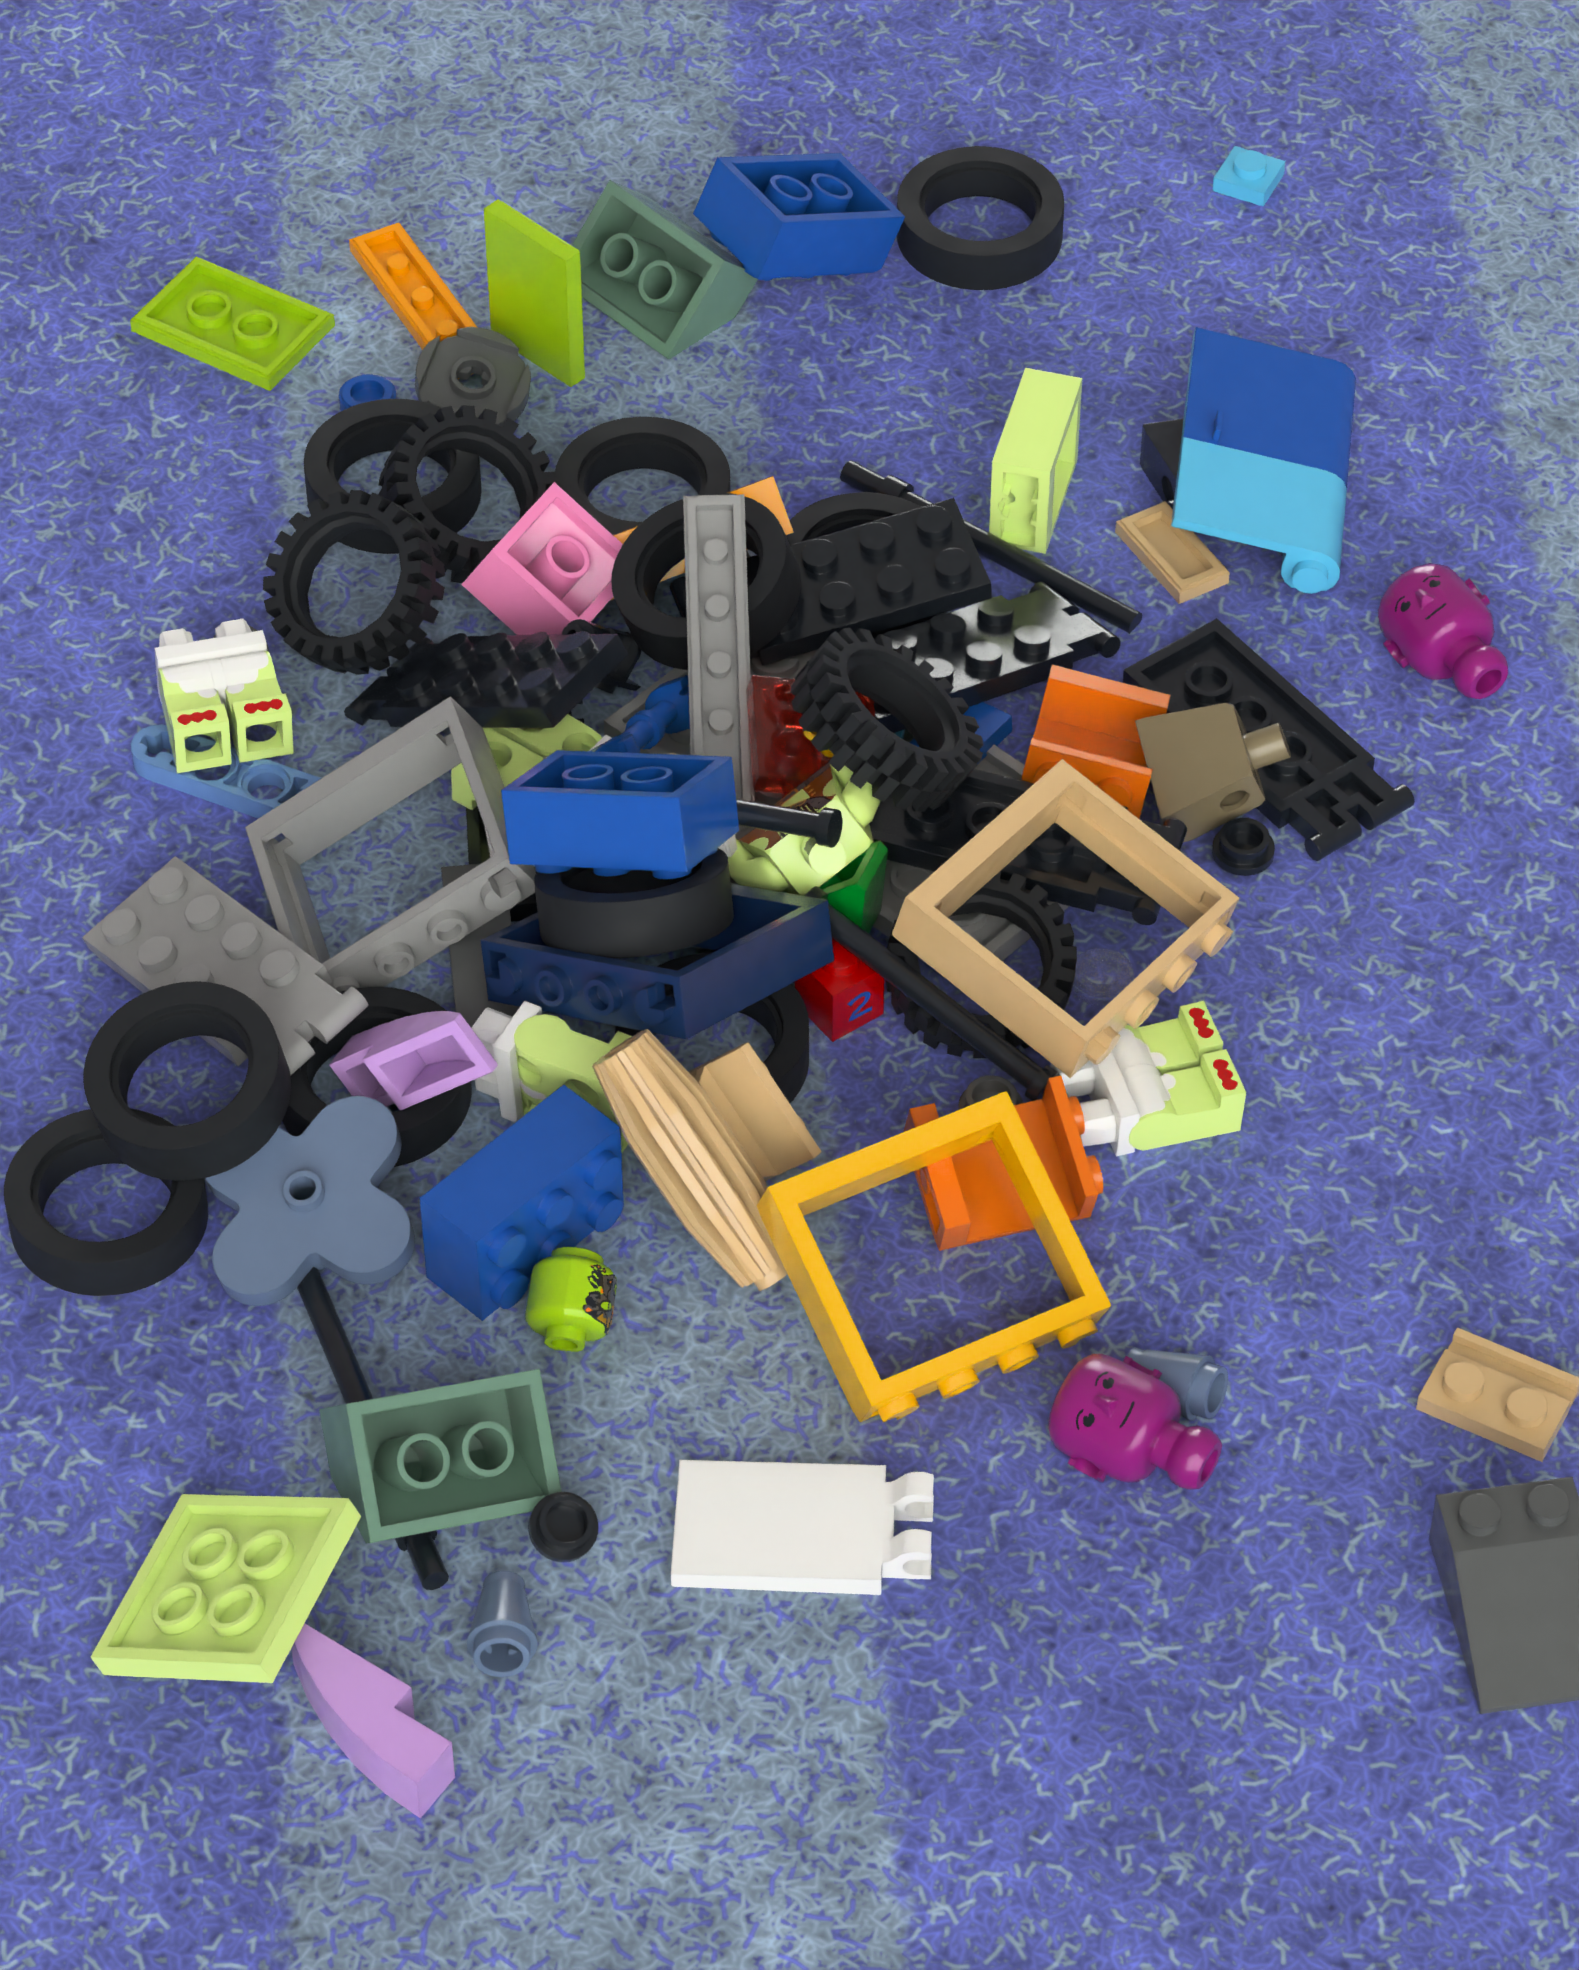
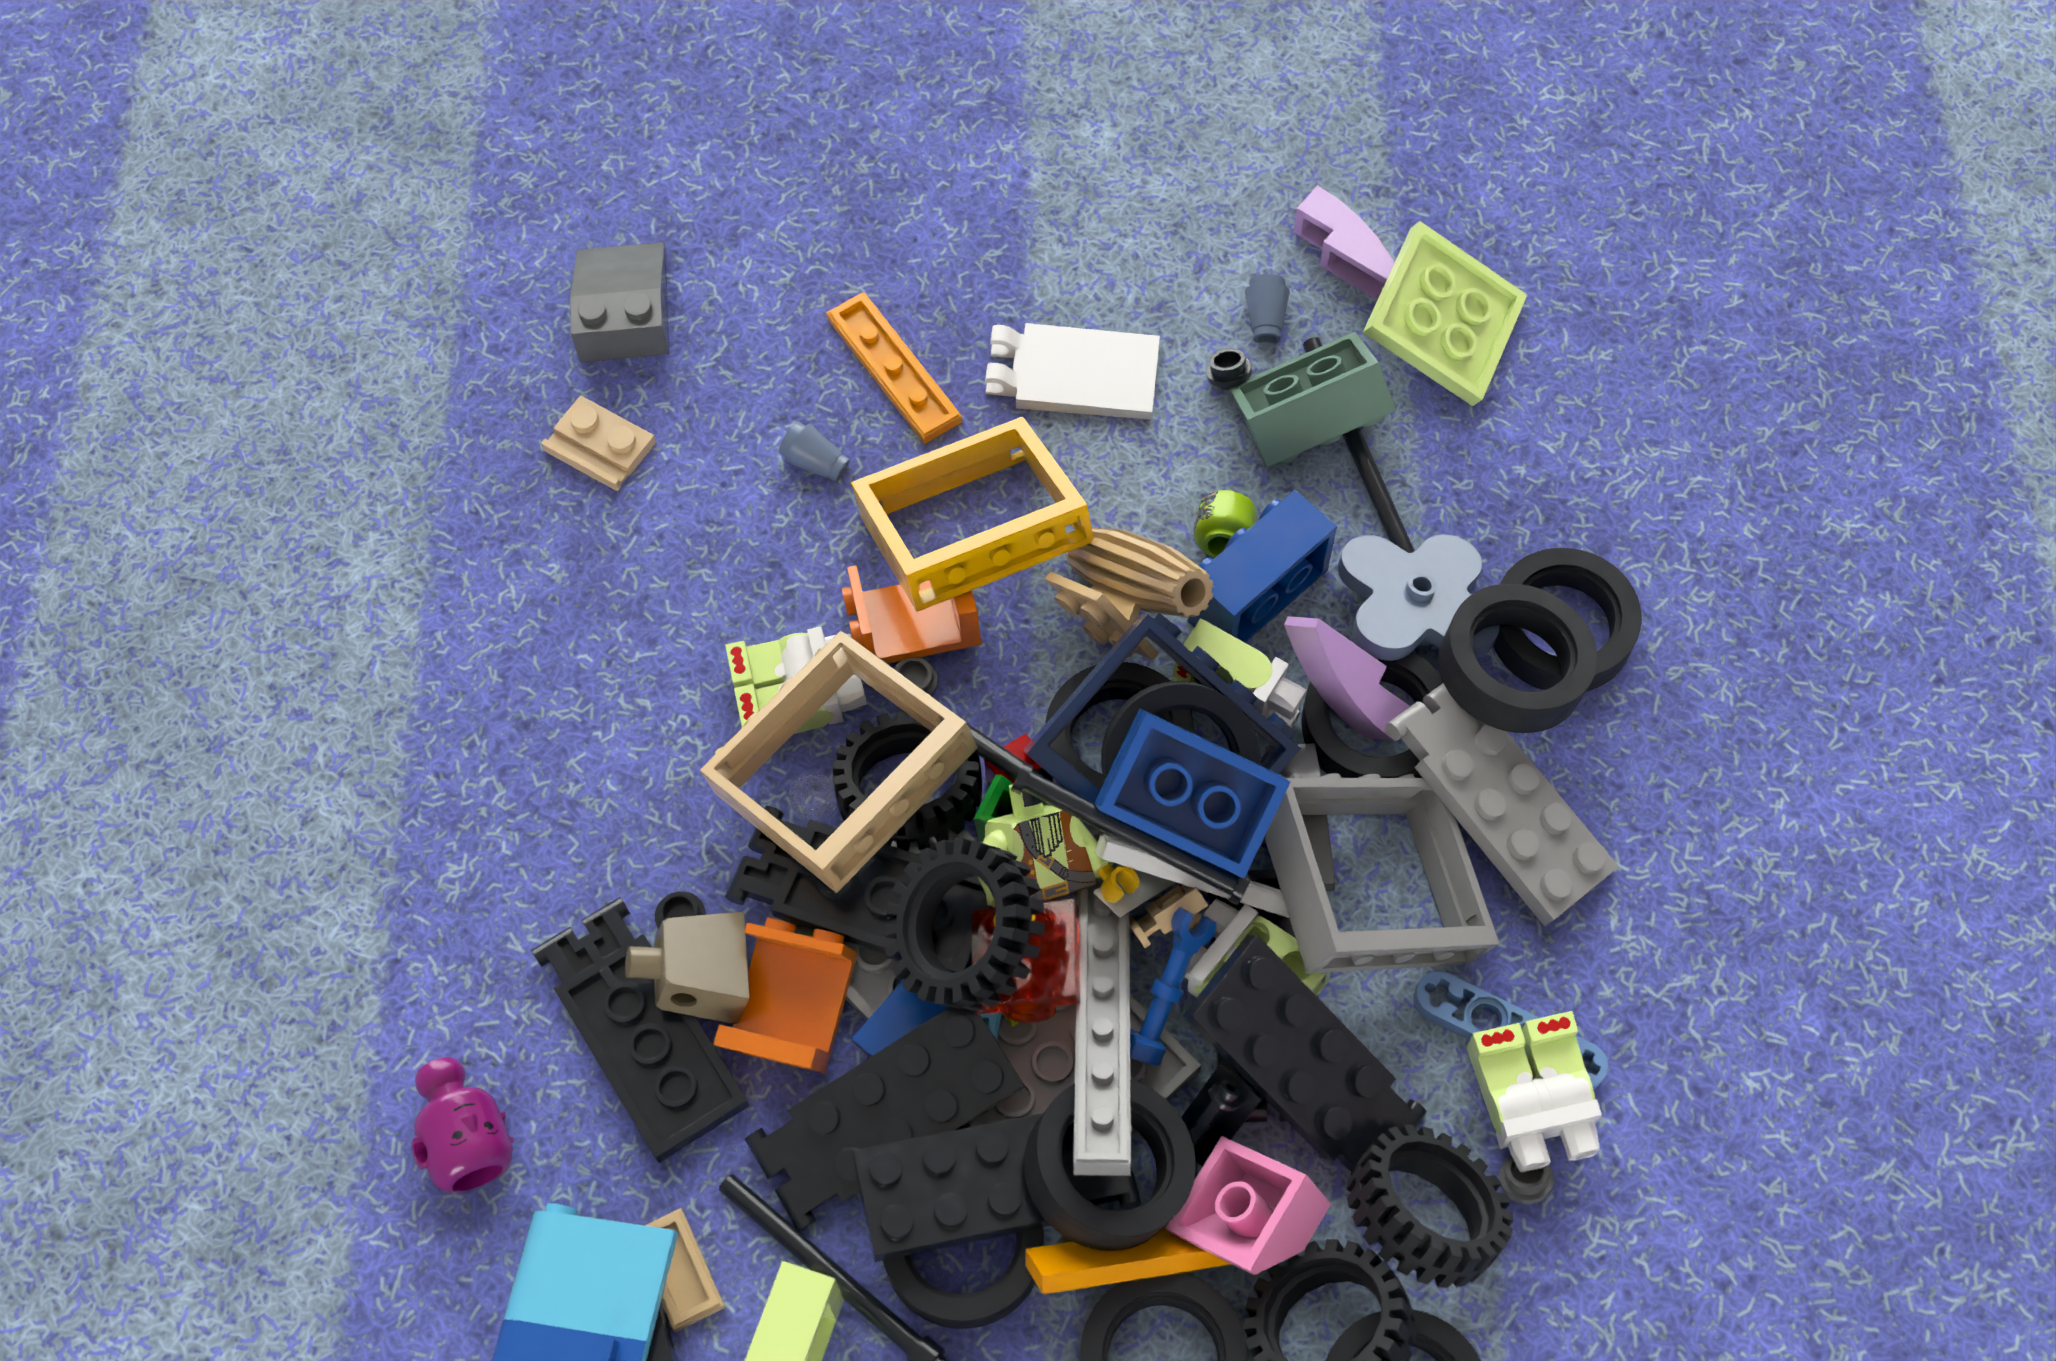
camera: 175 degrees left, 15 degrees up
(1080, 1525) = (894, 367): none -> light orange tile
(1126, 1423) = (851, 410): magenta piece -> none

